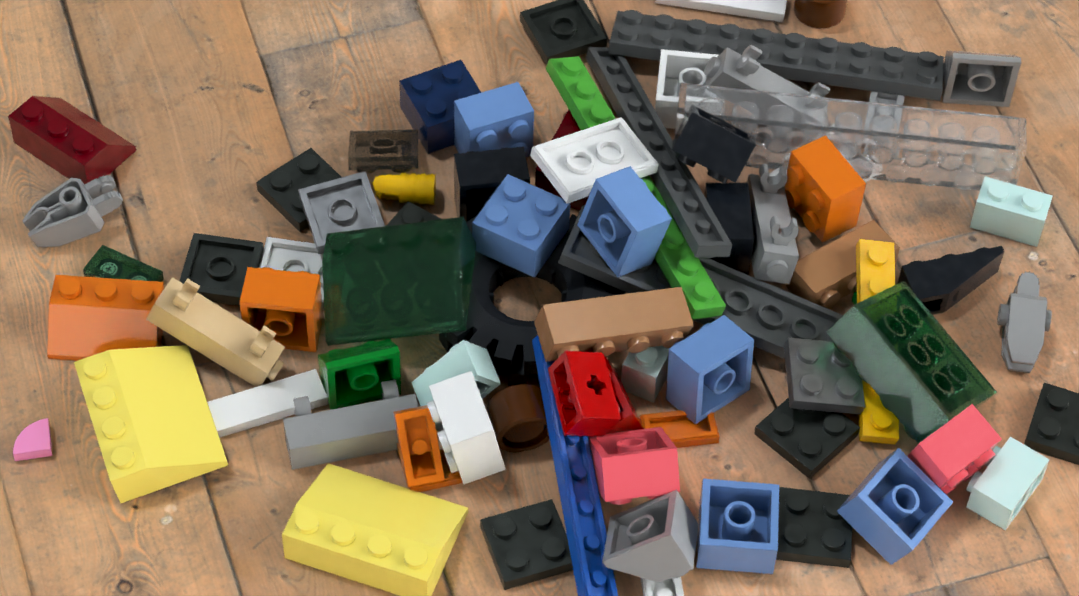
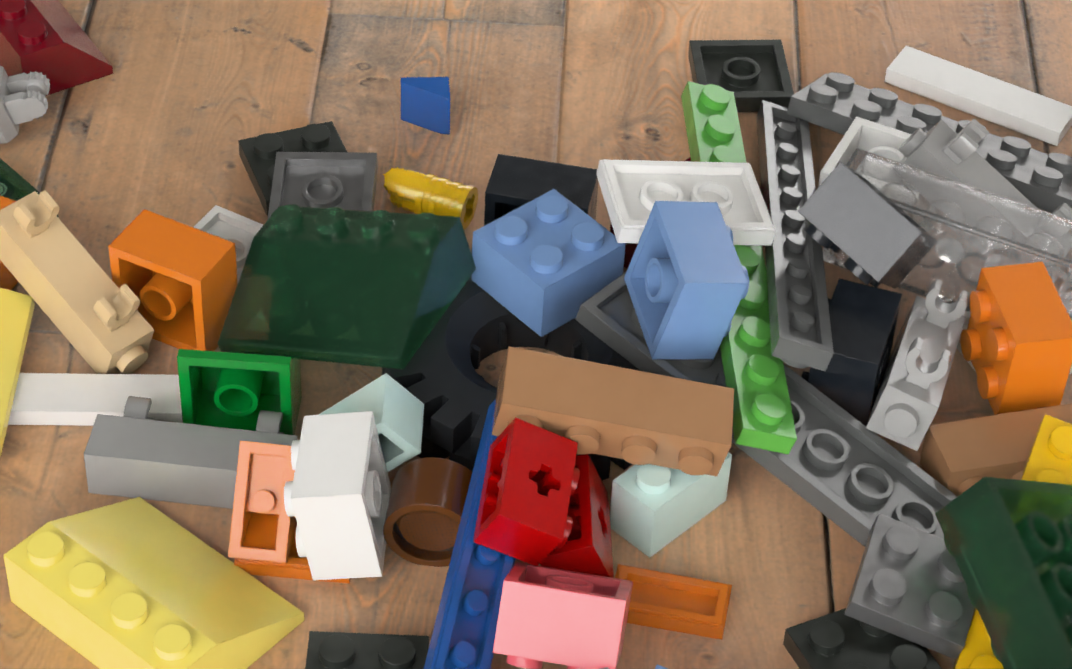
camera: 20 degrees right, 10 degrees down
(220, 266) = (118, 206): pearl dark grey plate -> none
(368, 114) = (426, 102): none -> blue slope
(383, 150) = (431, 146): clear smoke plate -> none
(429, 102) = (532, 113): dark blue brick -> none
(494, 120) = (582, 130): medium blue brick -> none
(709, 368) = (741, 523): medium blue brick -> none

